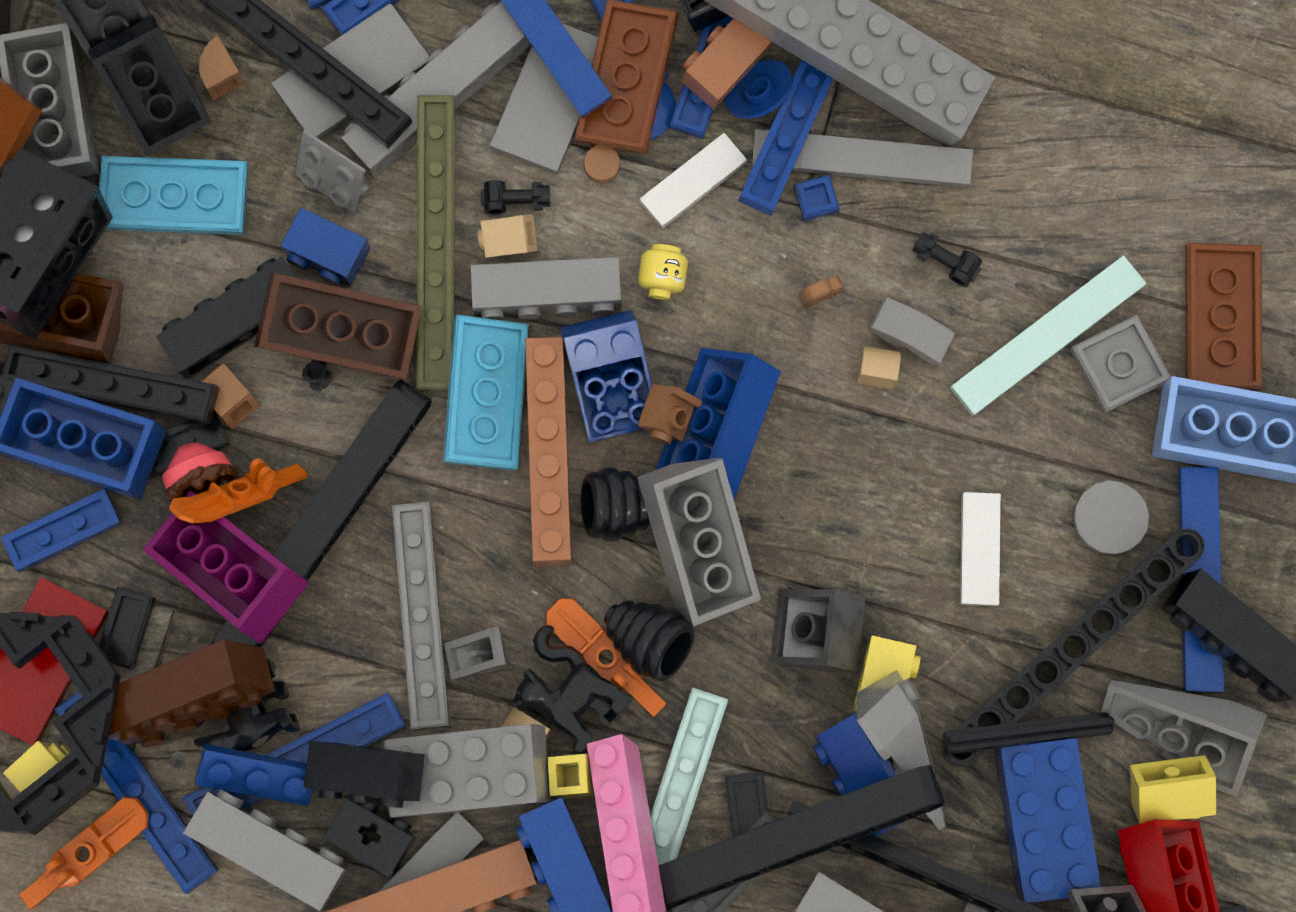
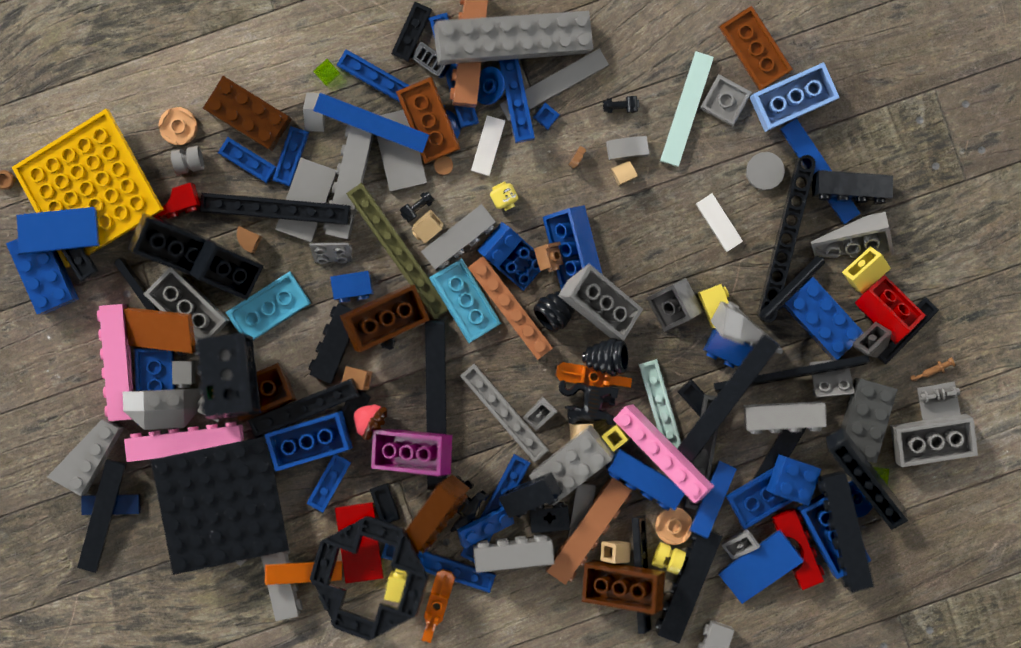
camera: 30 degrees left, 10 degrees up
(236, 495) = (390, 424): orange piece -> none

